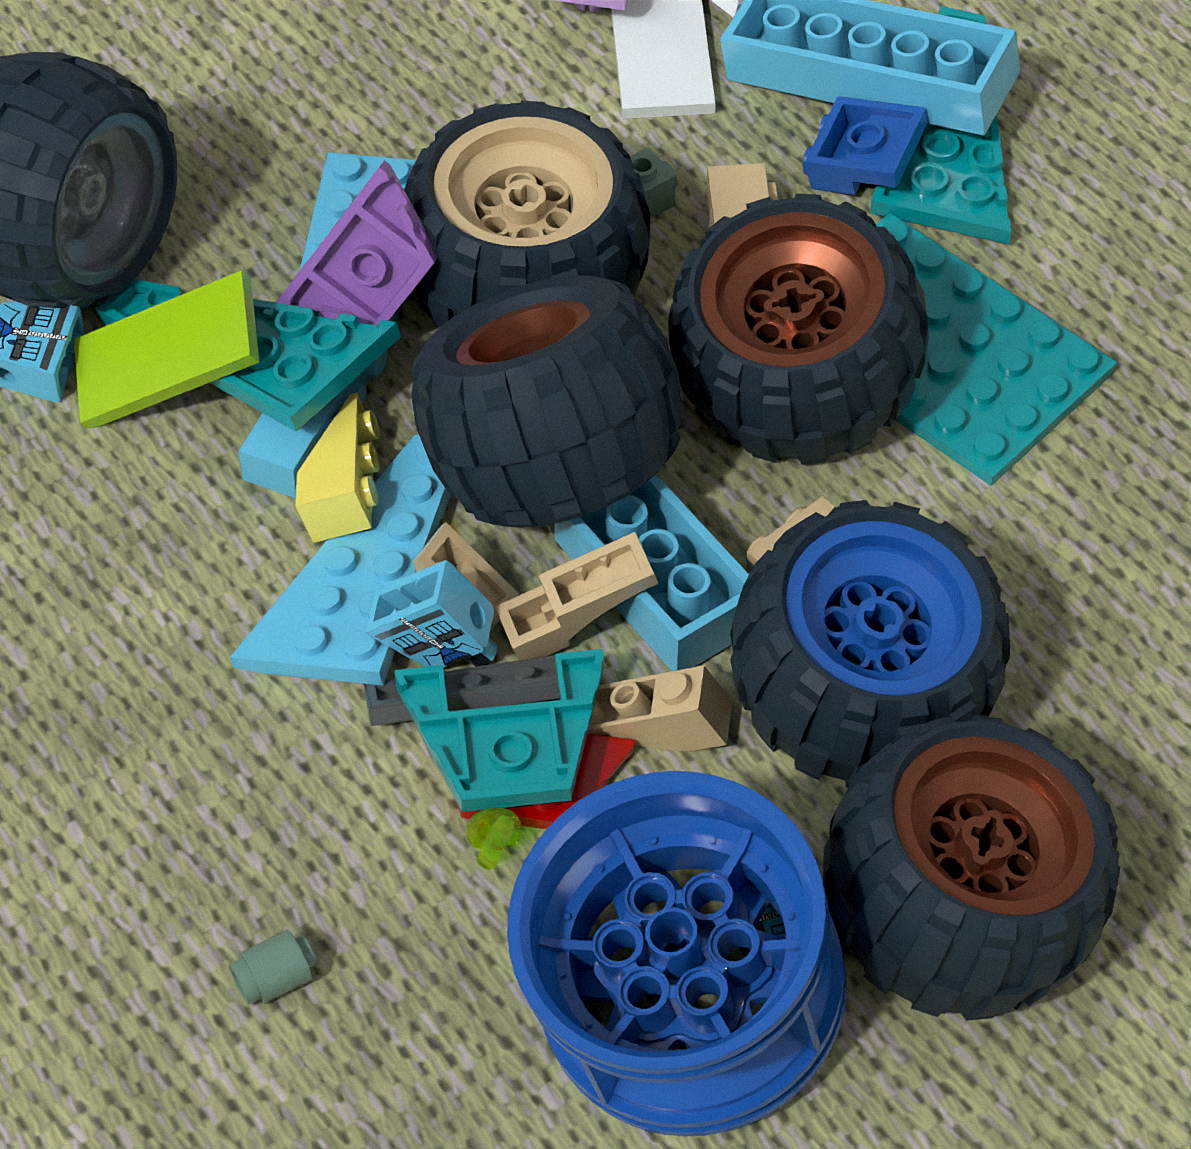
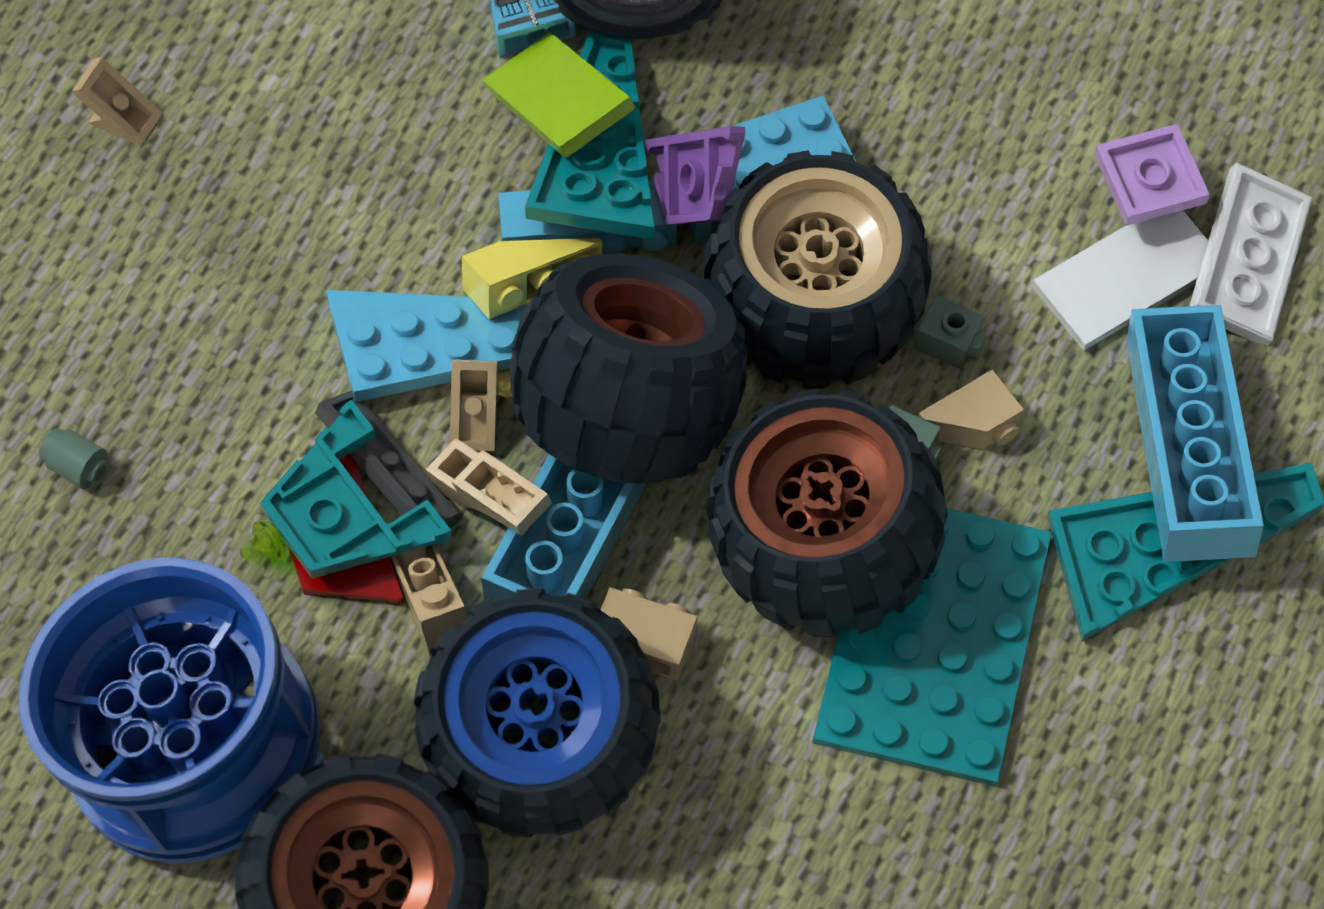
camera: 60 degrees right, 10 degrees up
(434, 618) = (413, 404): medium azure torso -> none
(863, 144) = (1100, 475): blue plate -> none

